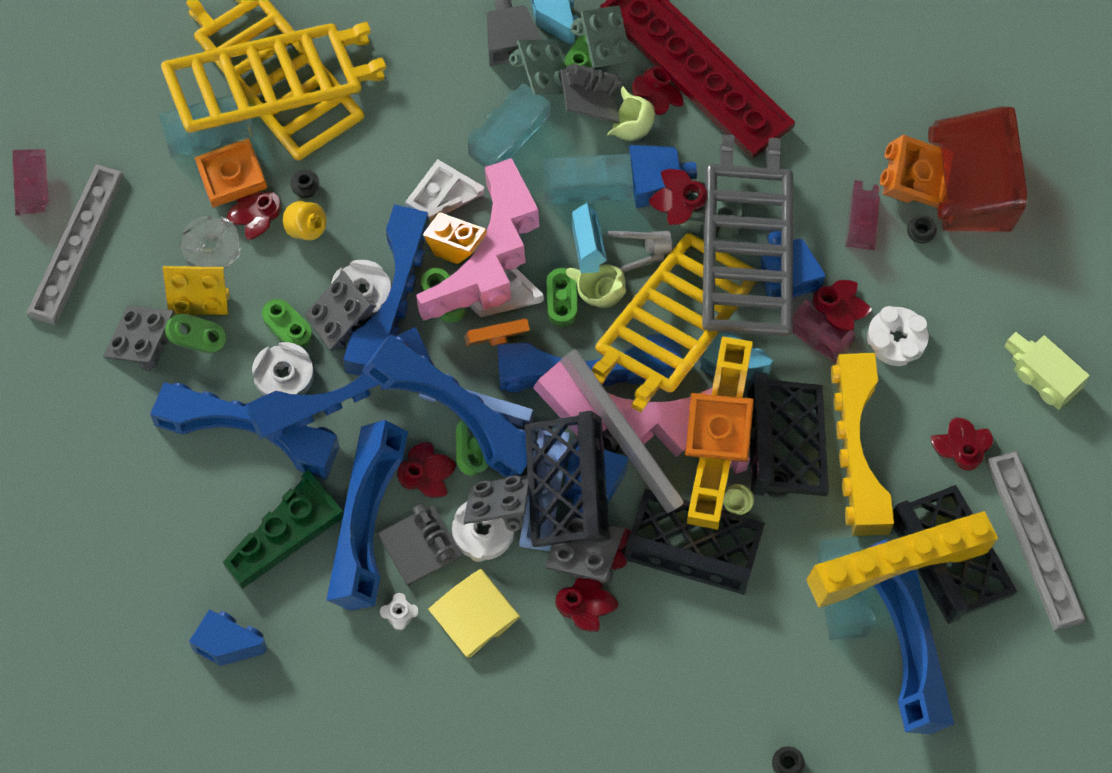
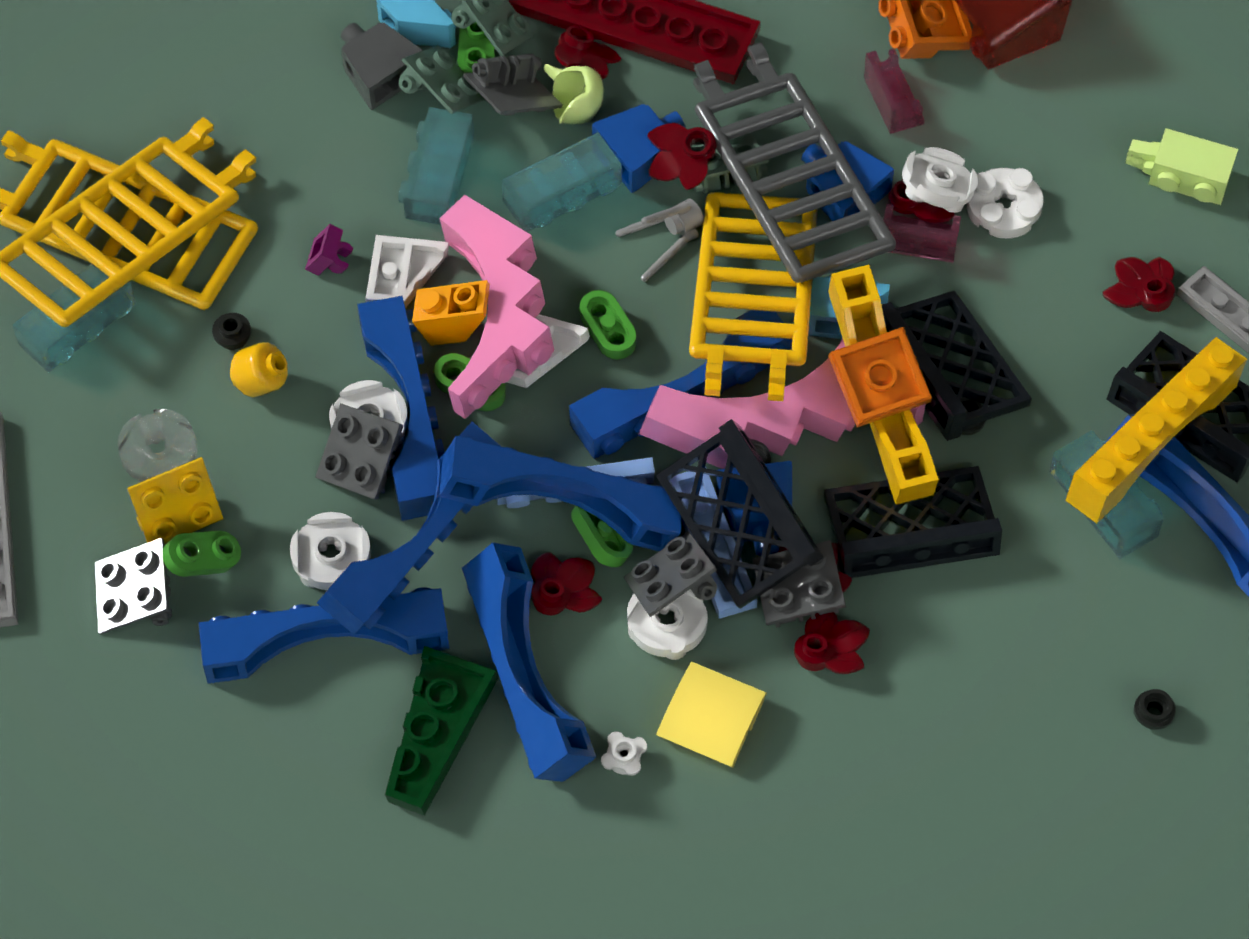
camera: 25 degrees left, 5 degrees down
(224, 641) = (441, 881): blue slope -> none
(230, 172) = (135, 356): orange plate -> none
(254, 214) = (185, 390): dark red plate -> none
(286, 322) = (300, 497): bright green plate -> none
(397, 155) = (325, 250): none -> magenta tile
(419, 544) = (603, 669): dark grey hinge -> none
(497, 333) = (562, 393): orange plate -> none
(588, 239) = (603, 247): medium azure piece -> none
(600, 288) = (647, 290): yellowish green hair -> none
(621, 431) = (773, 430): light grey tile -> none
(738, 499) = (941, 451): yellowish green plate -> none
(841, 300) = (950, 191): none -> white plate
(869, 501) = (1079, 390): yellow arch -> none
(923, 222) = (964, 70): pearl dark grey plate -> none

